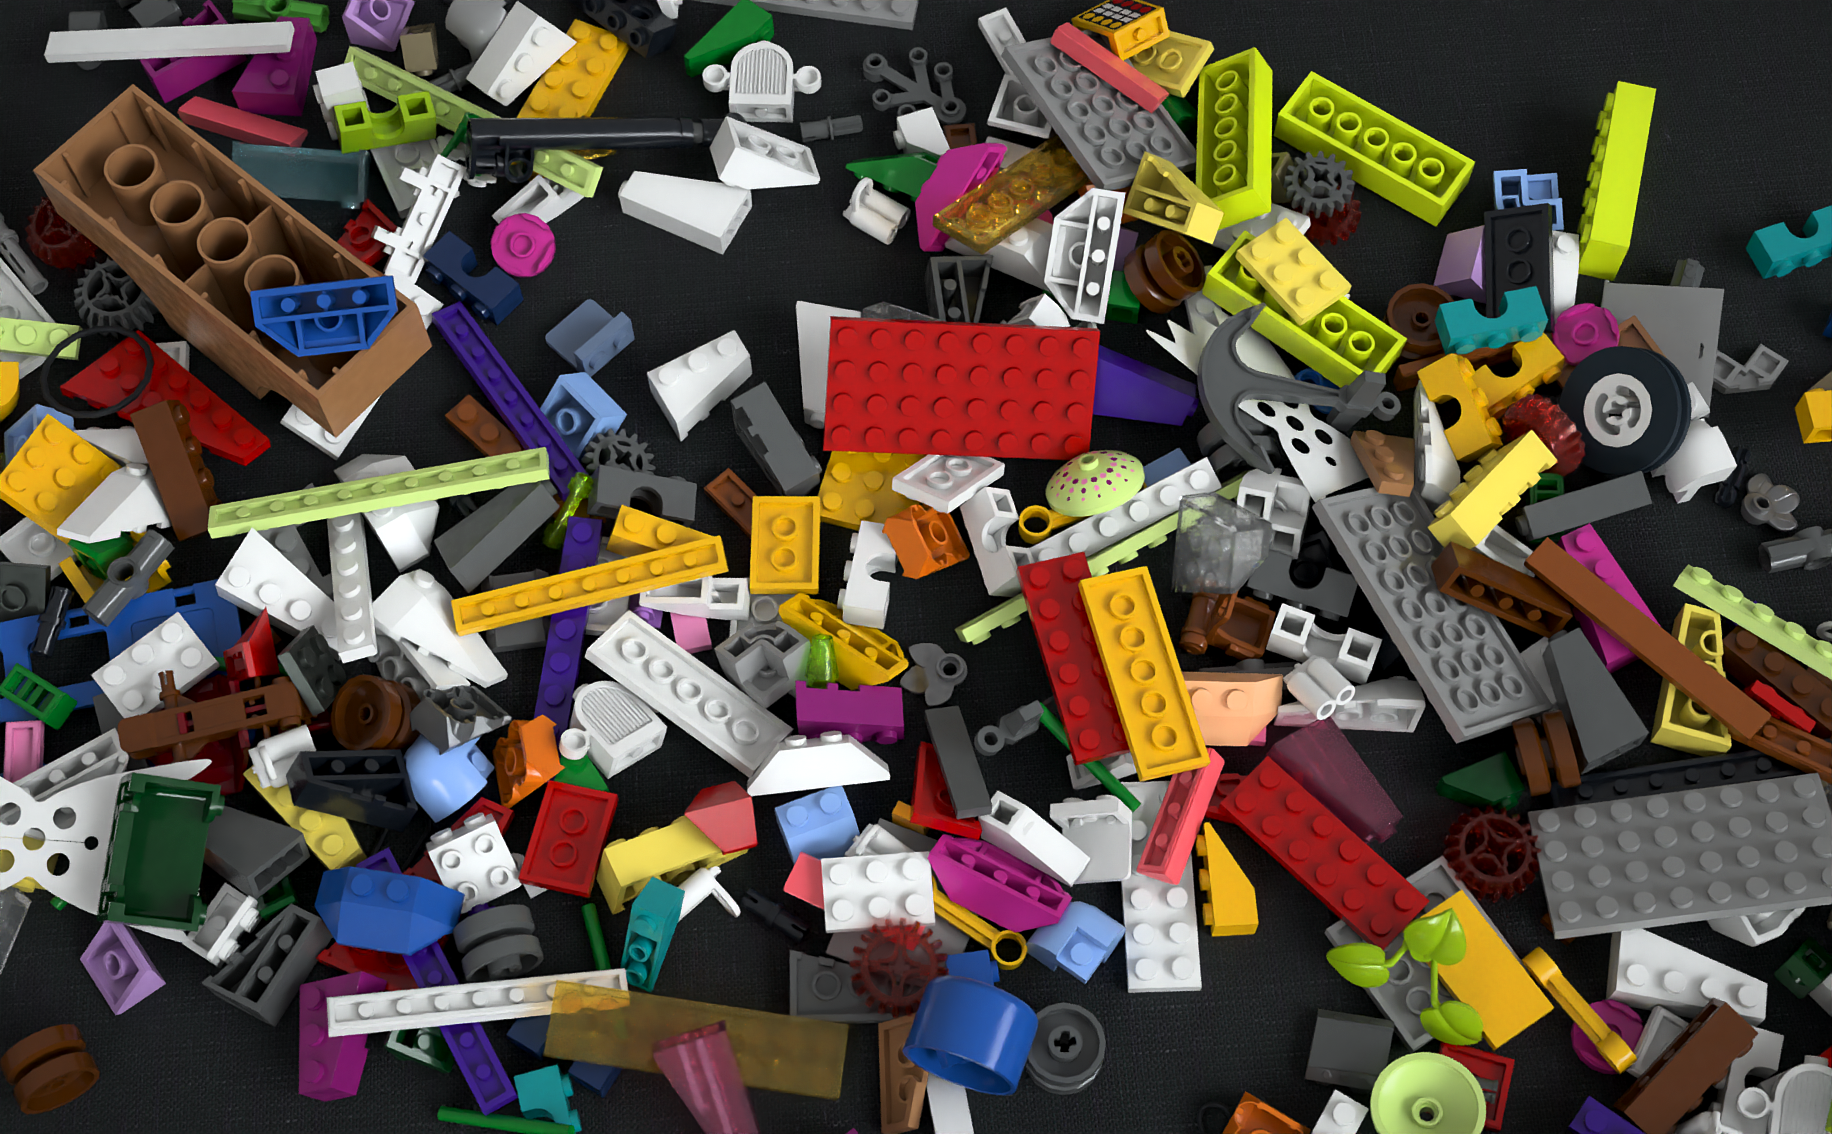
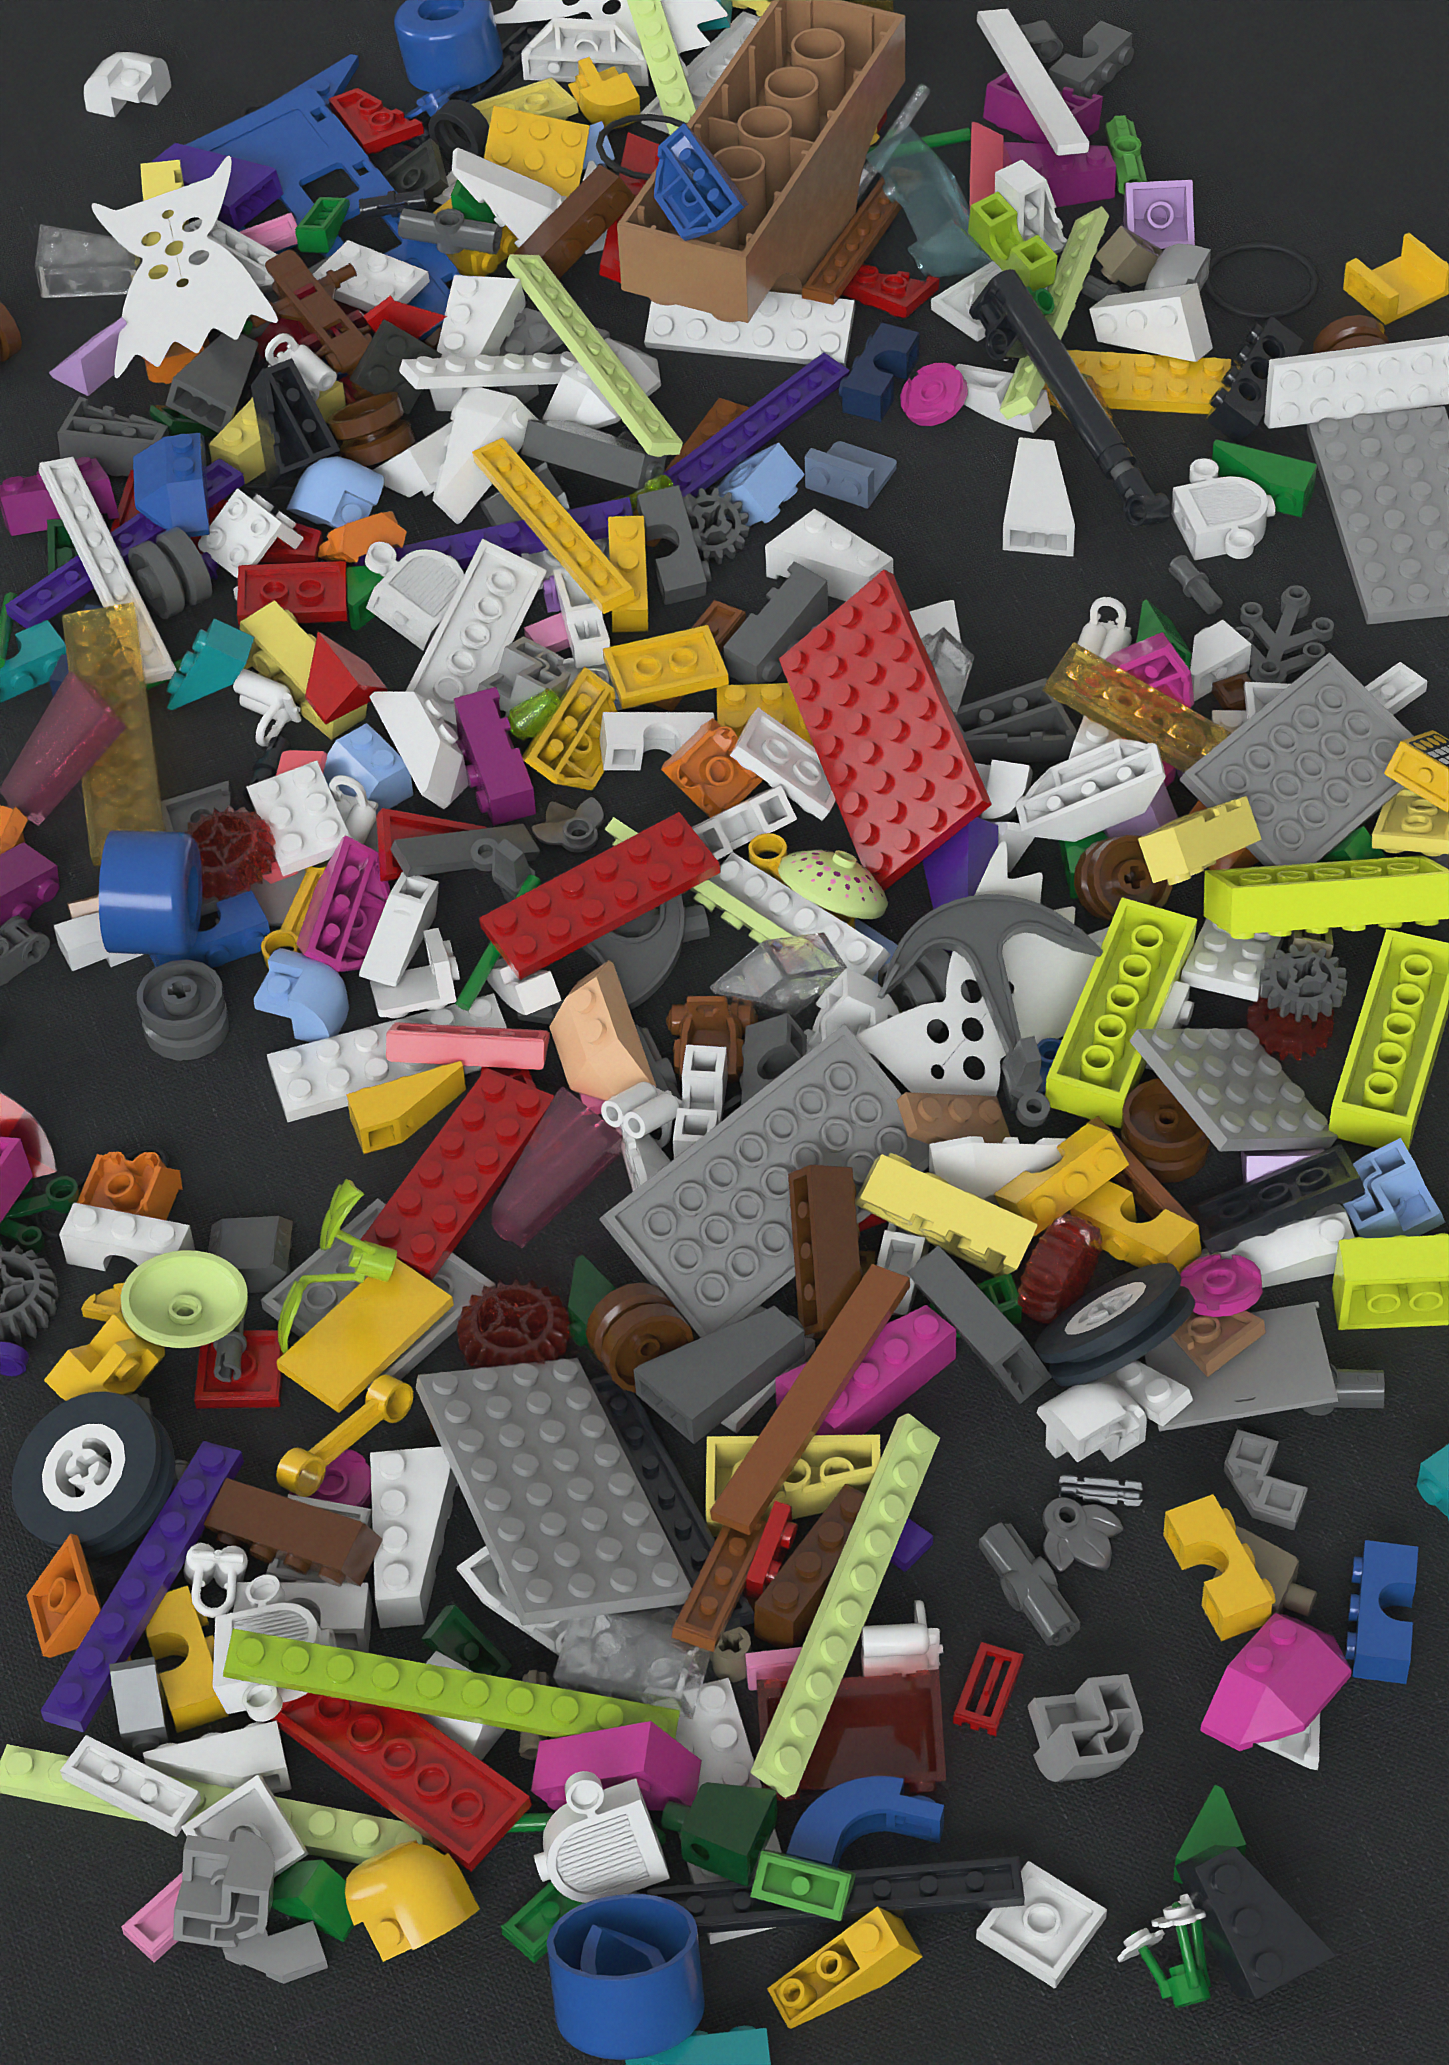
camera: 75 degrees right, 15 degrees down
(158, 852) = (175, 315): dark green windscreen -> none
(225, 924) = (130, 396): white bracket -> none
(434, 195) = (921, 308): white hinge -> none
(456, 716) = (384, 473): dark grey slope -> none
(760, 159) = (1115, 527): white slope -> none
(1108, 67) = (1367, 760): coral slope -> none
(1143, 673) = (589, 935): yellow plate -> none
(1293, 271) = (1158, 969): light yellow plate -> none
(1405, 265) = (1233, 1089): none -> light grey plate
(1465, 329) = (1188, 1188): teal arch -> none

